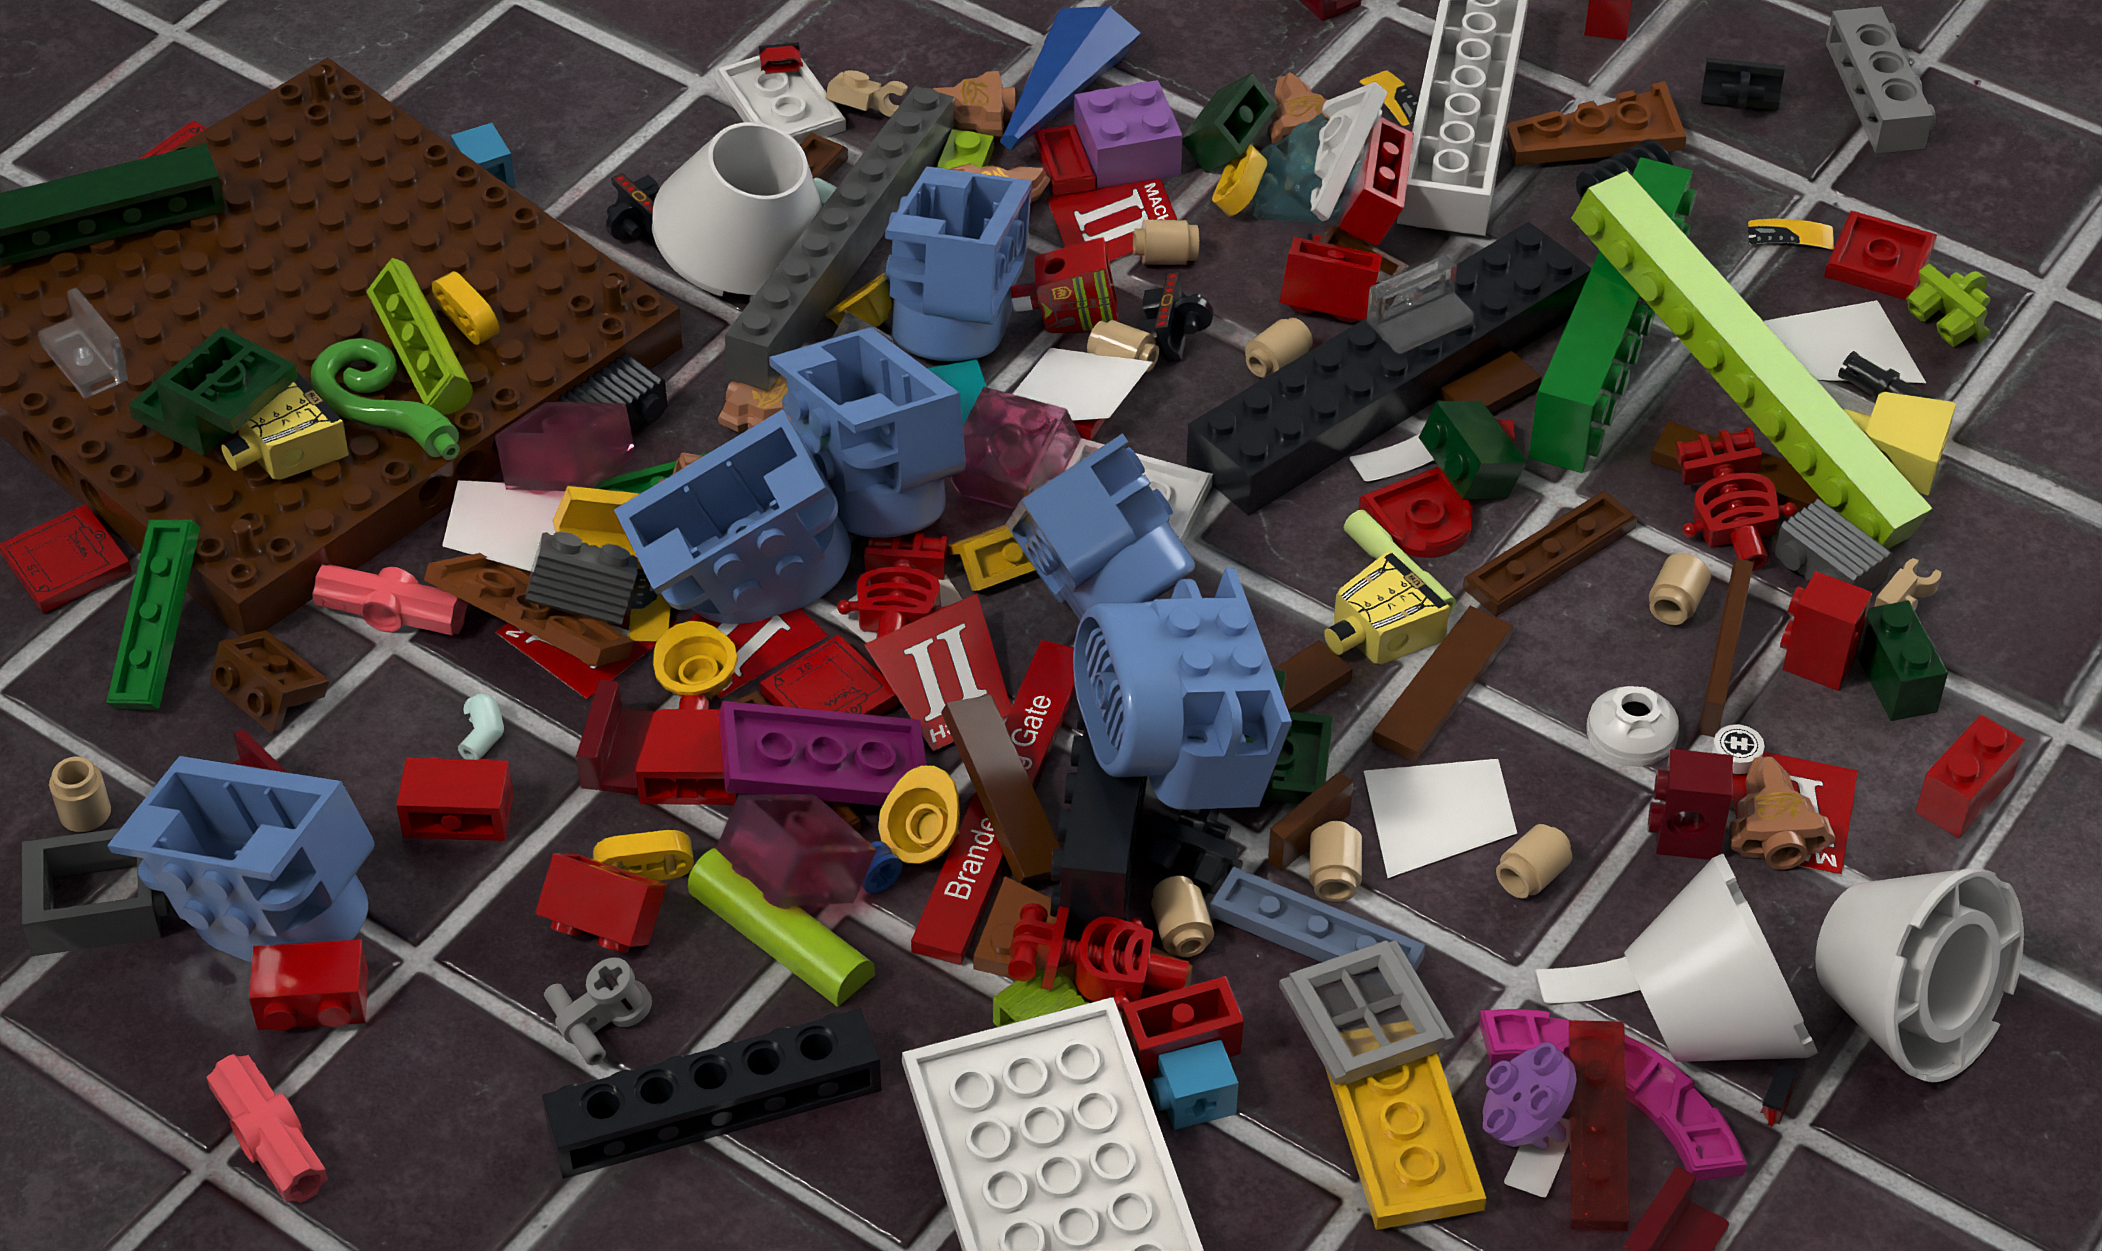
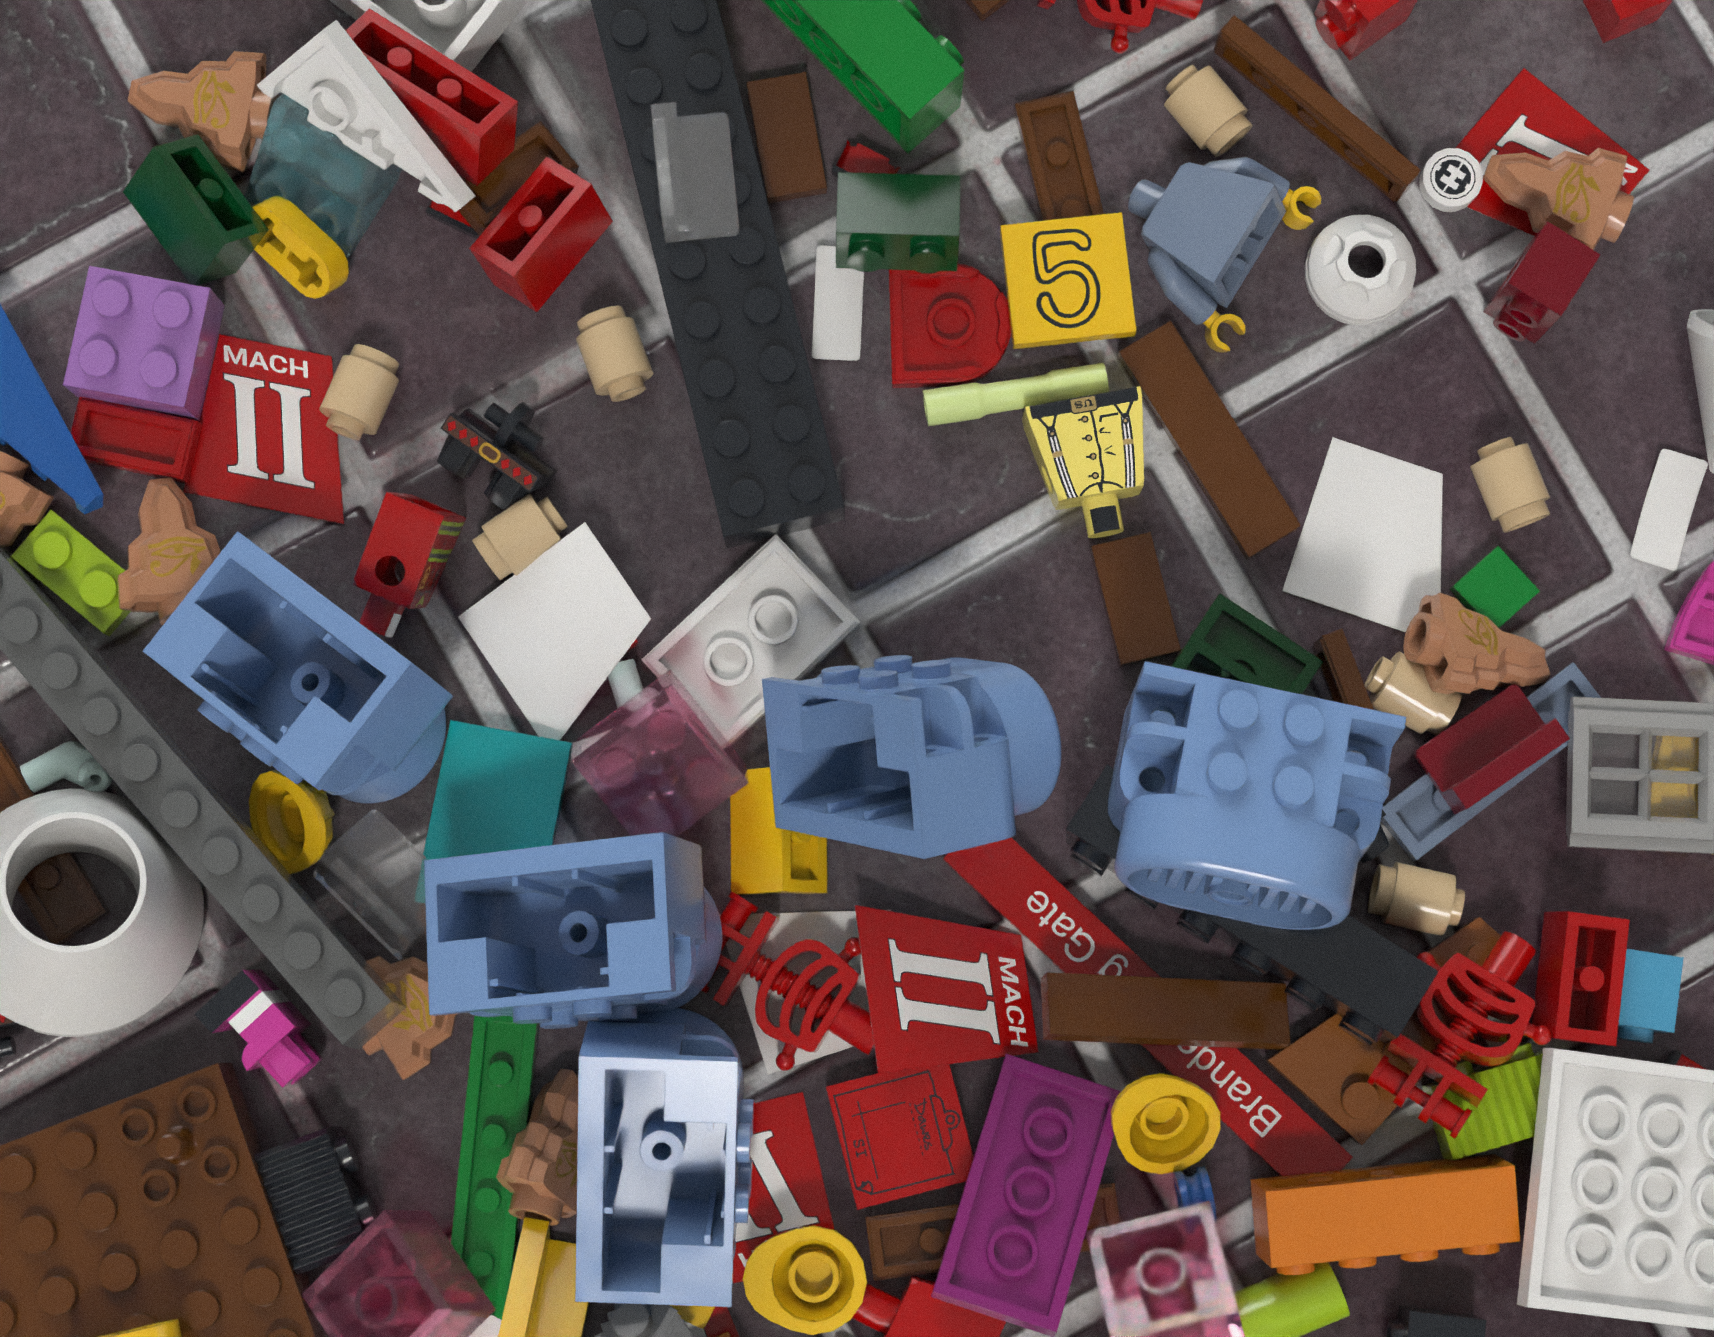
camera: 65 degrees left, 35 degrees up
(708, 320) = (266, 1023): none -> dark pink hips
(919, 960) = (1385, 1213): none -> orange brick
(1319, 908) = (1488, 748): none -> dark red panel
(1389, 874) = (1468, 651): none -> nougat rock
(1449, 890) = (1495, 588): none -> green tile
(1498, 553) = (1067, 280): none -> yellow tile
(1592, 612) = (1211, 232): none -> sand blue torso

